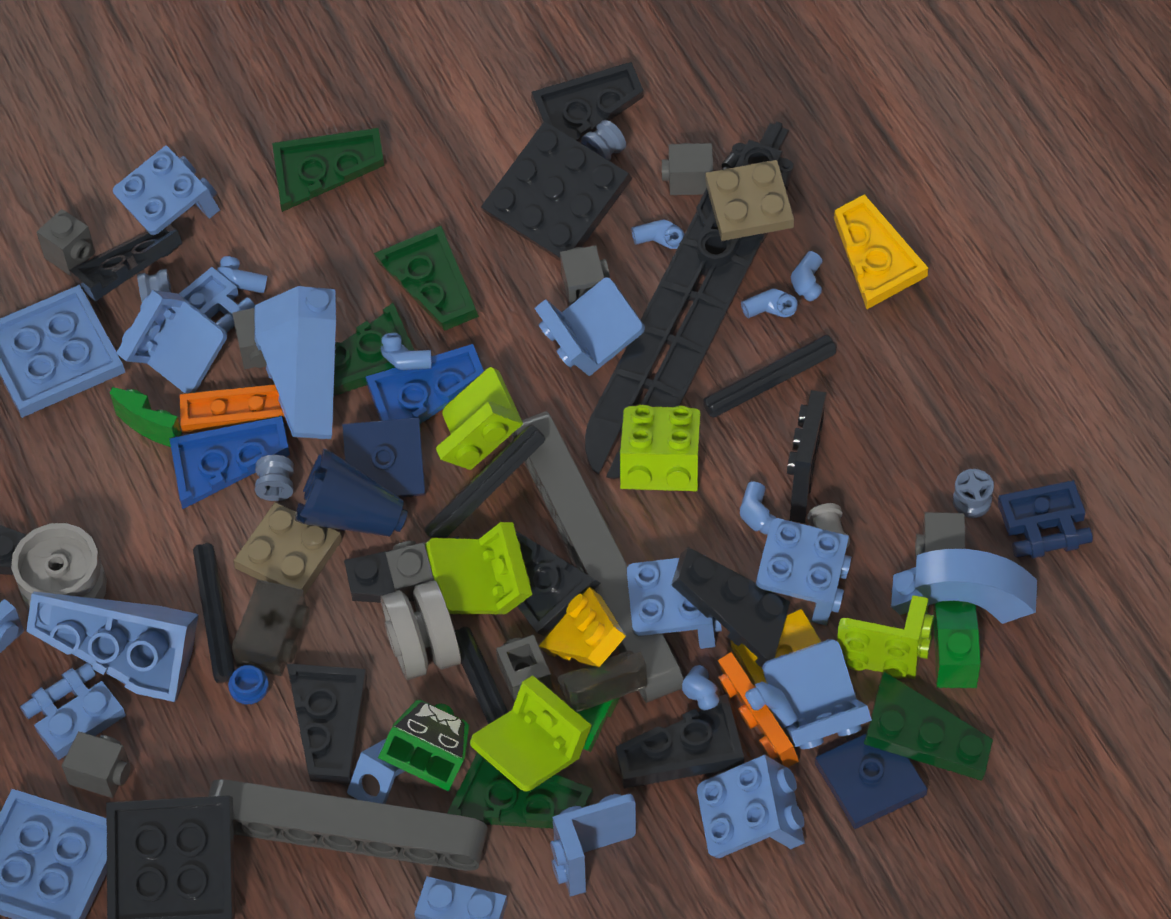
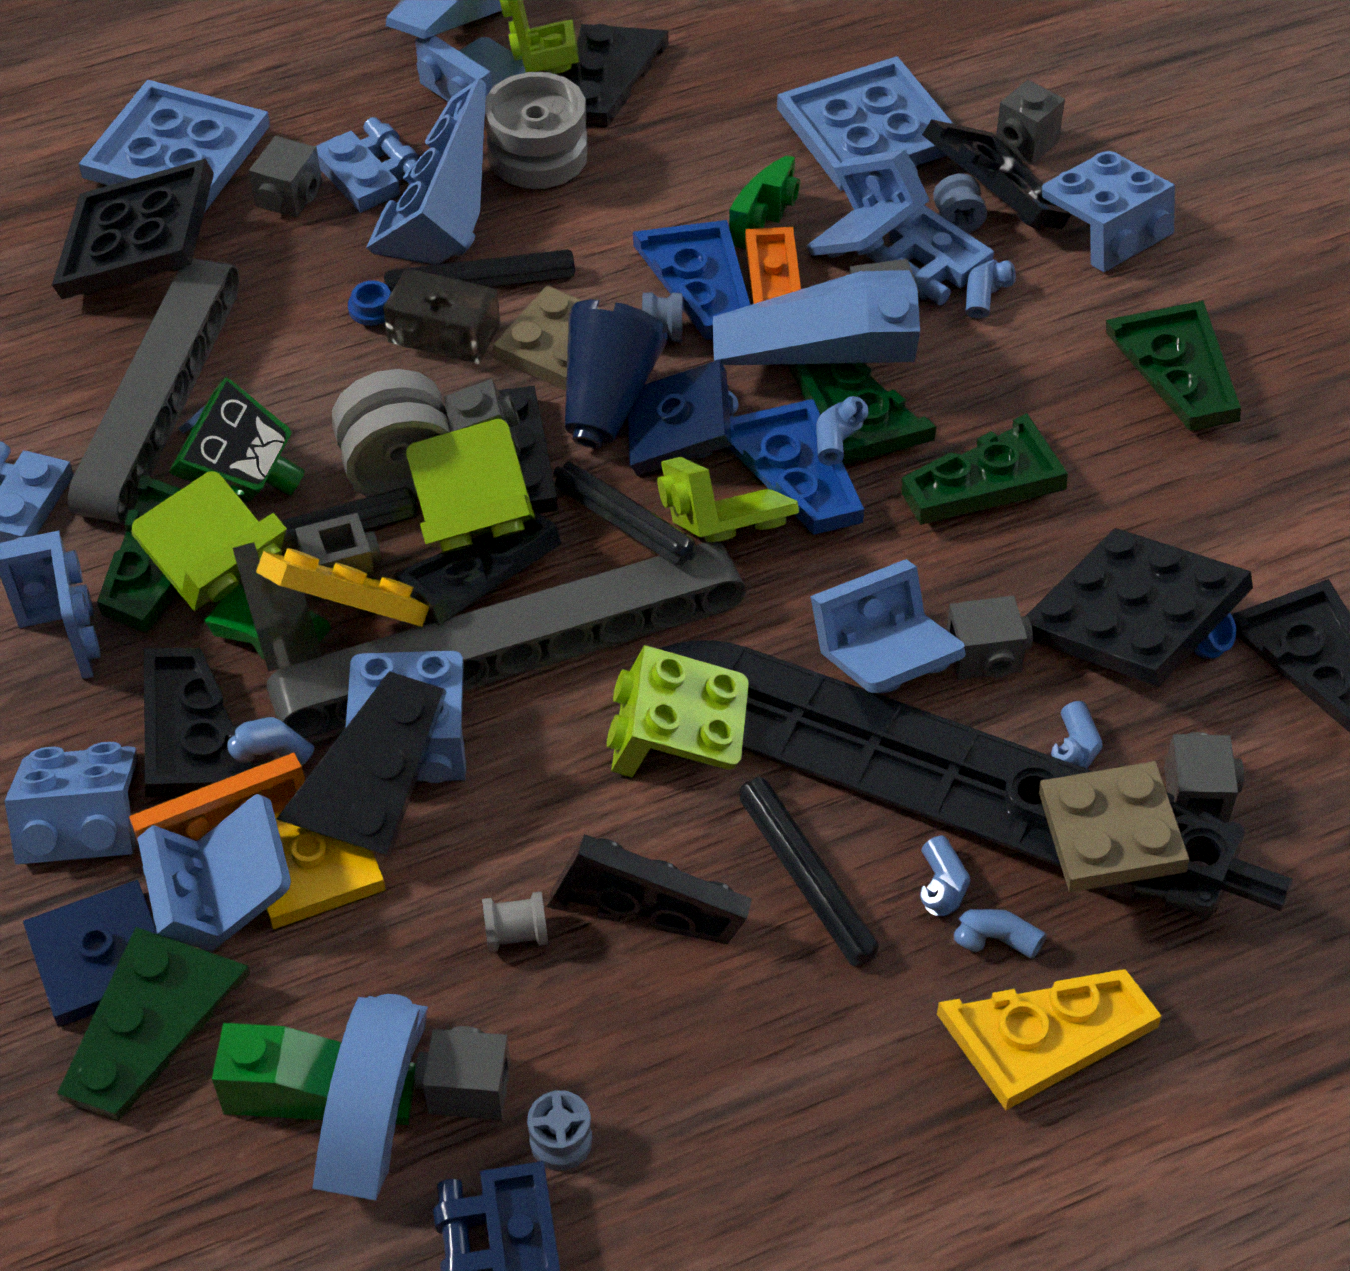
camera: 90 degrees right, 5 degrees down
(328, 718) = (305, 374): black wing -> none
(605, 140) = (1244, 670): sand blue wheel -> none
(752, 509) = (561, 831): medium blue arm -> none
(776, 701) = (212, 807): medium blue arm -> none
(805, 565) = (430, 870): medium blue bracket -> none
(886, 647) = (273, 979): lime bracket -> none

